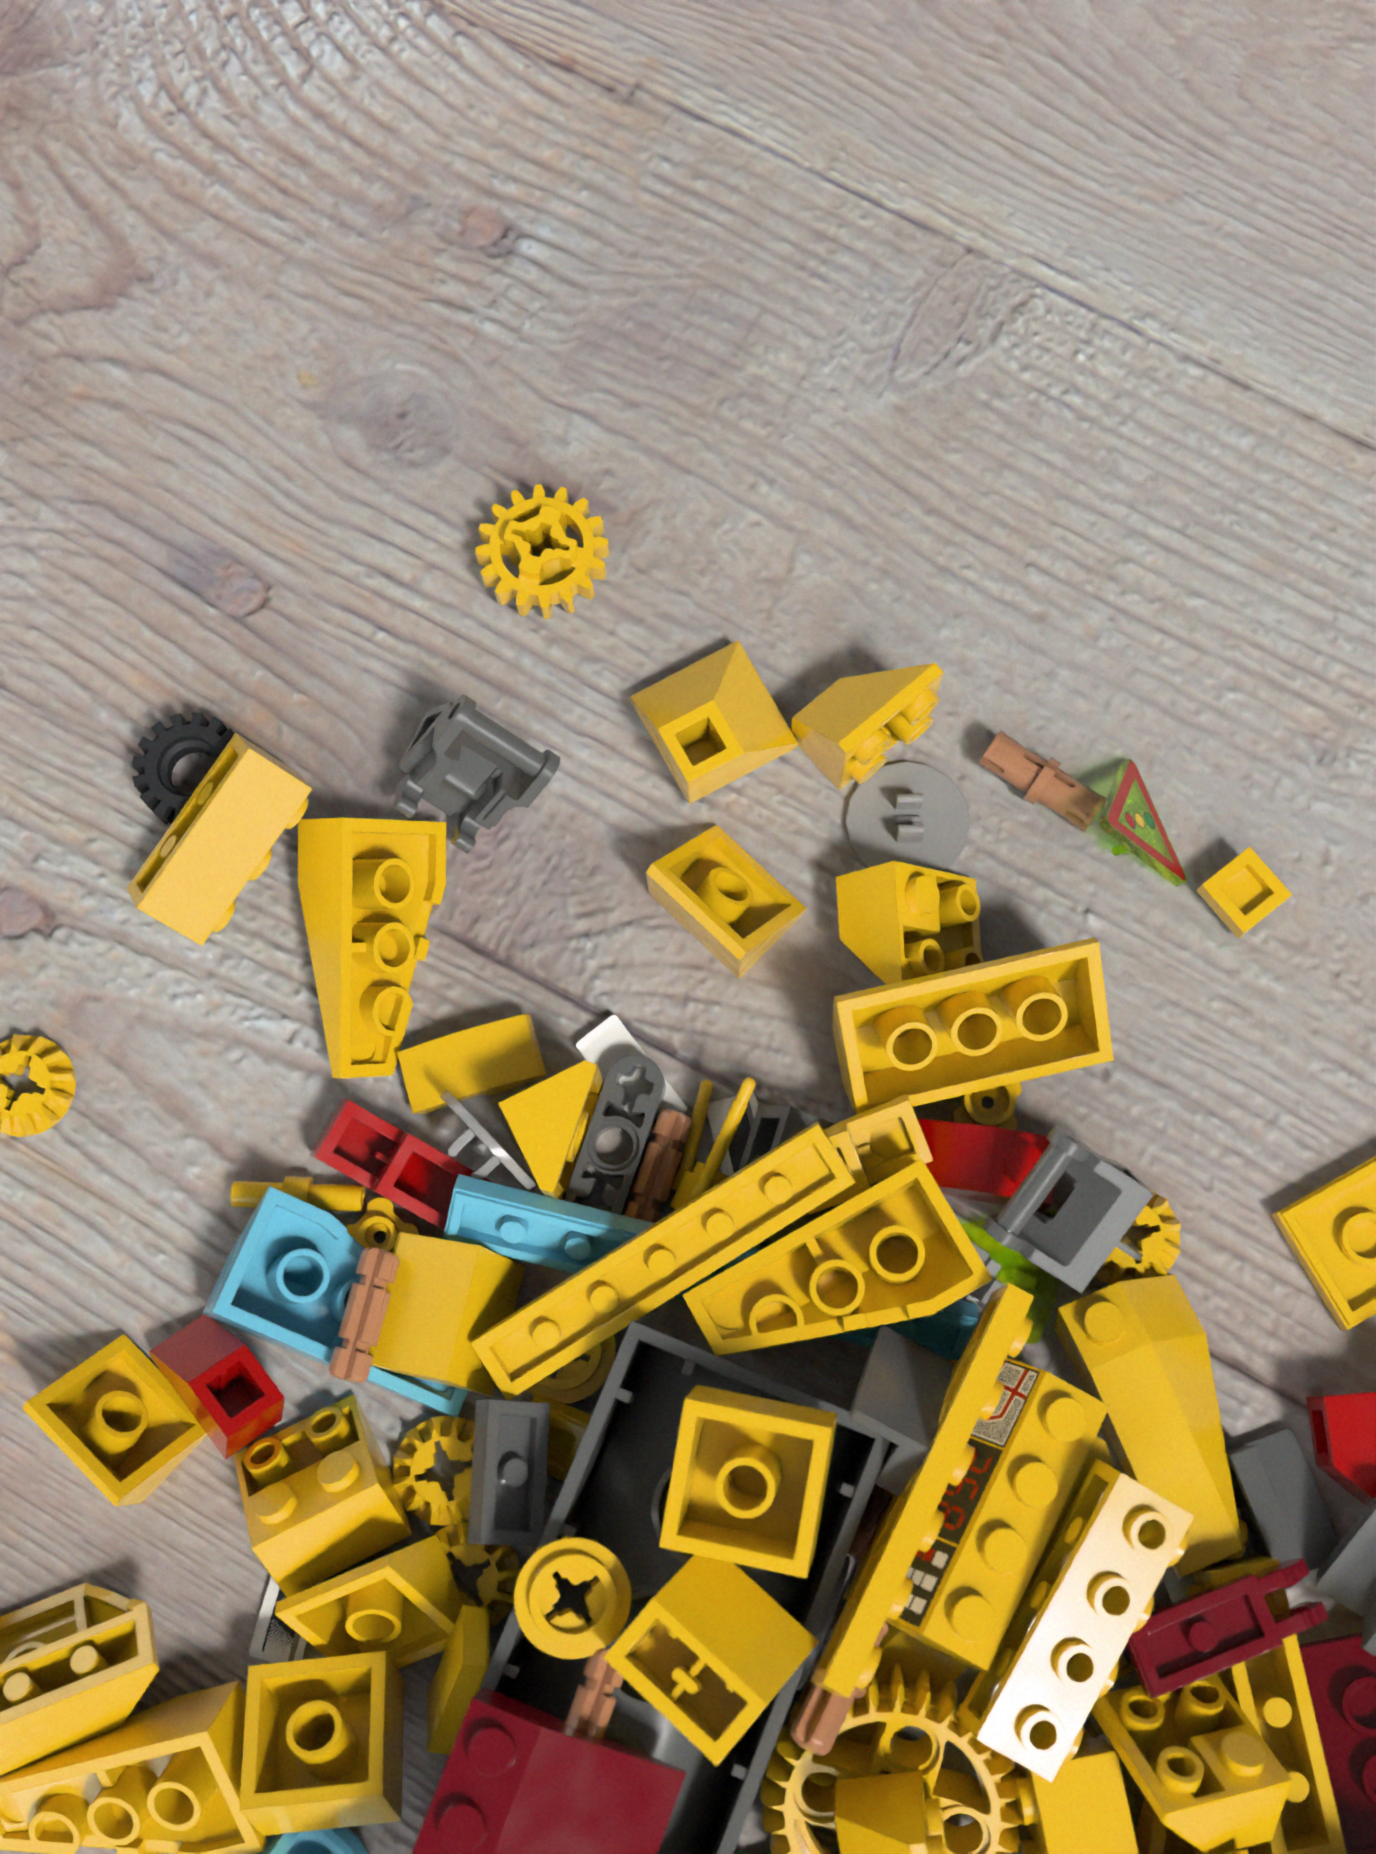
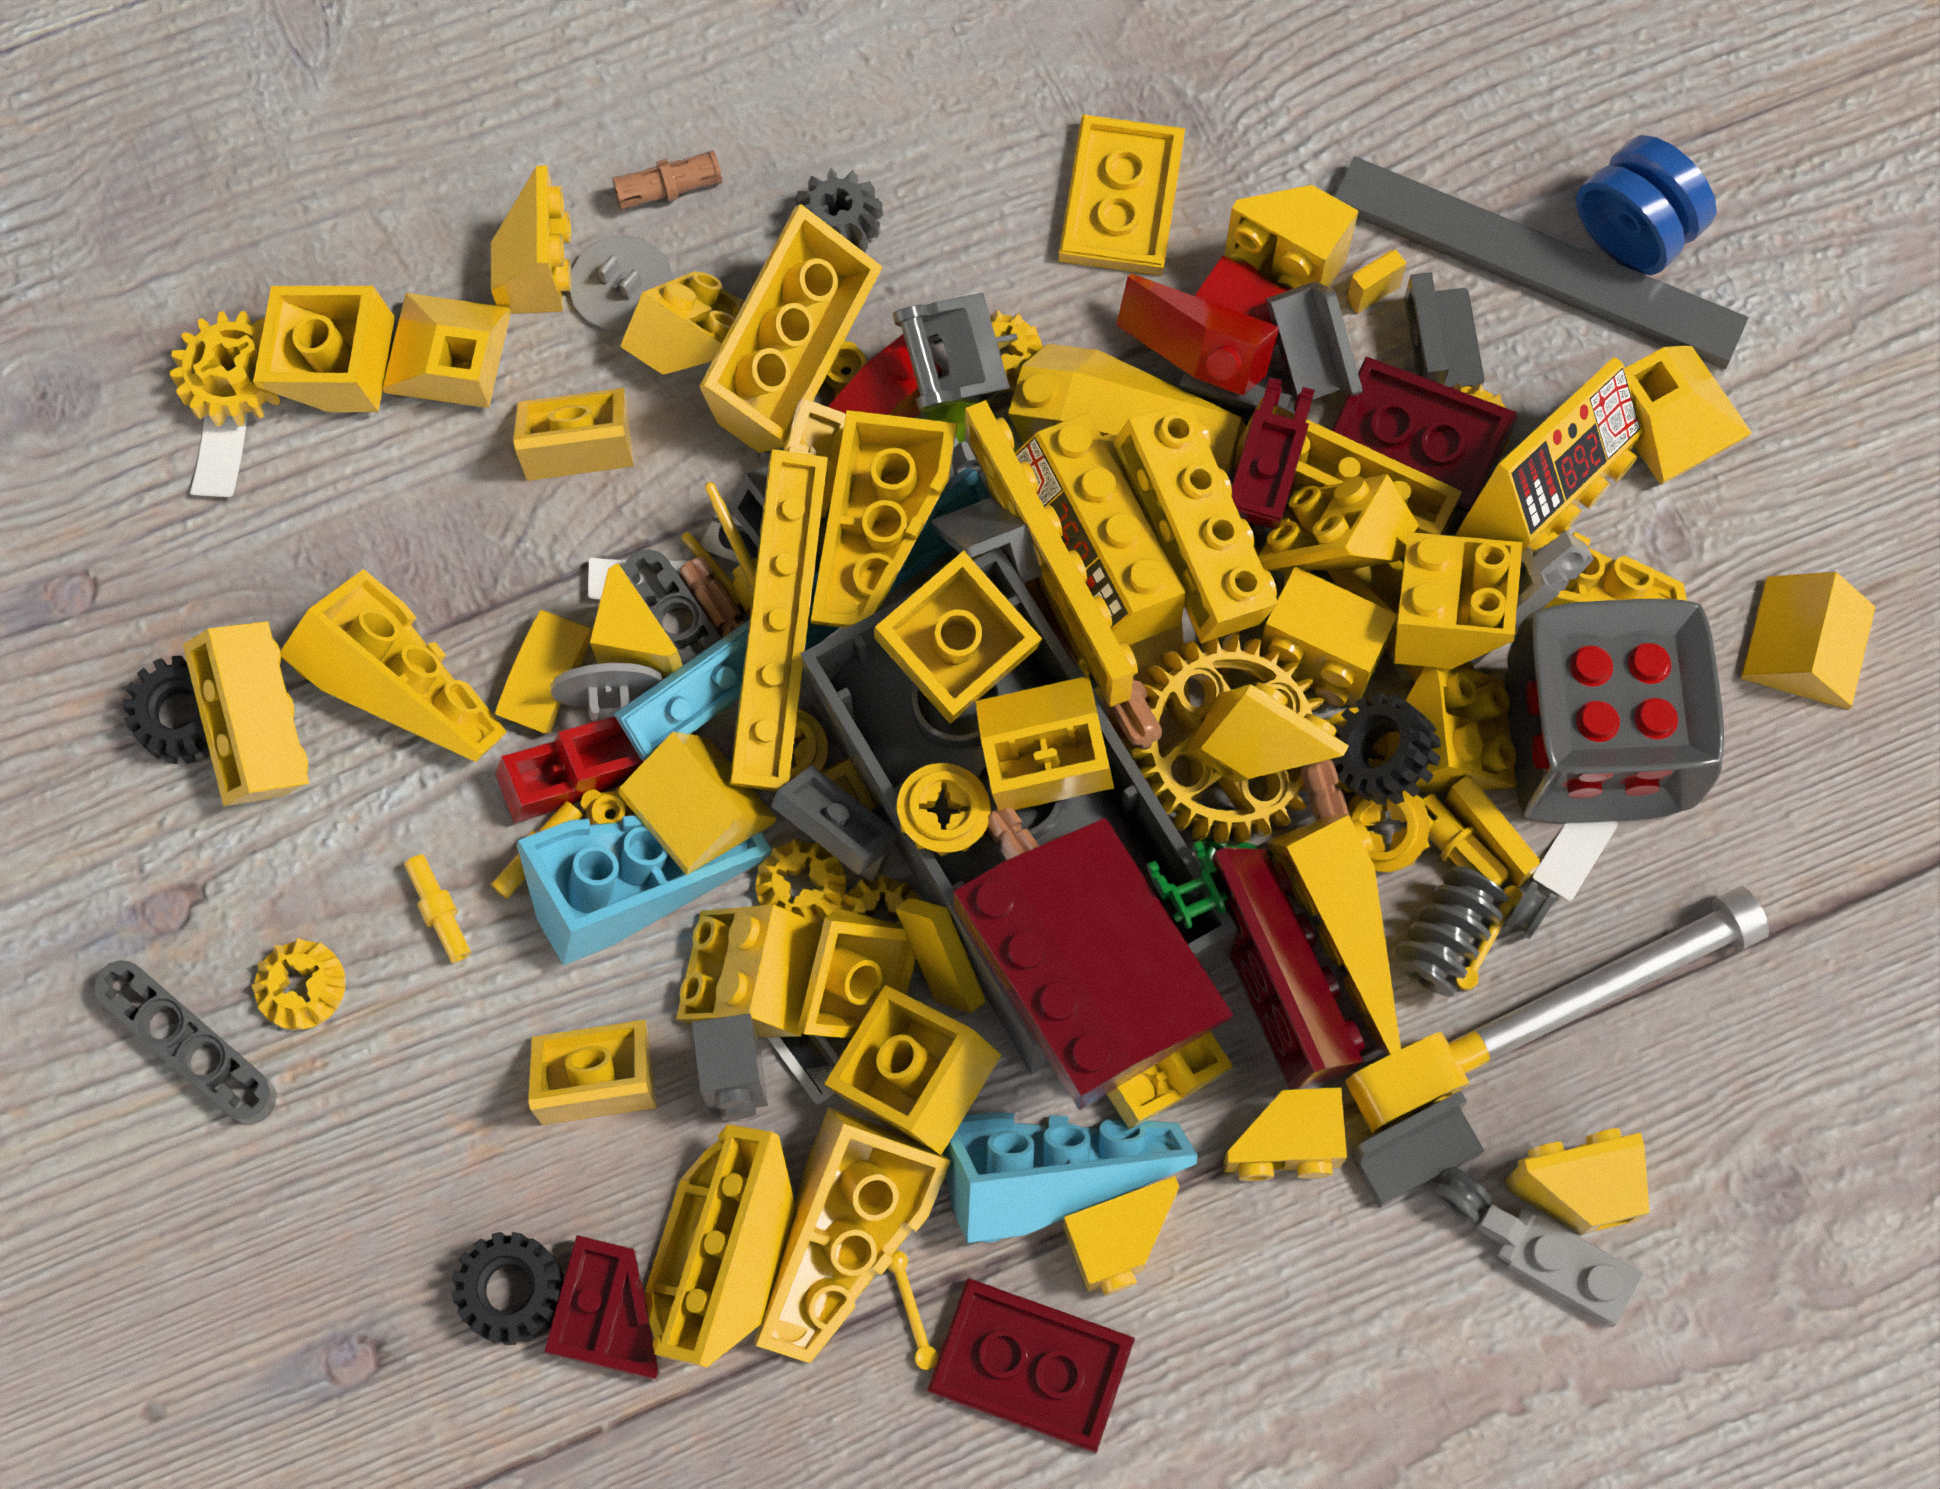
camera: 55 degrees left, 5 degrees down
(178, 1151) = (437, 908): none -> yellow bar
(199, 1561) = (730, 1066): none -> dark grey brick
(220, 1383) = (622, 981): red slope -> none
(364, 1315) = (655, 844): nougat axle -> none
(455, 612) = (219, 458): none -> white sticker
(470, 770) = (344, 526): dark grey piece -> none
(623, 616) = (325, 346): none -> yellow slope
(1135, 824) = (740, 142): piece -> none
(1148, 949) = (844, 206): none -> dark grey gear
(1244, 892) = (844, 117): yellow plate -> none
(1295, 1434) = (1198, 334): none -> red slope

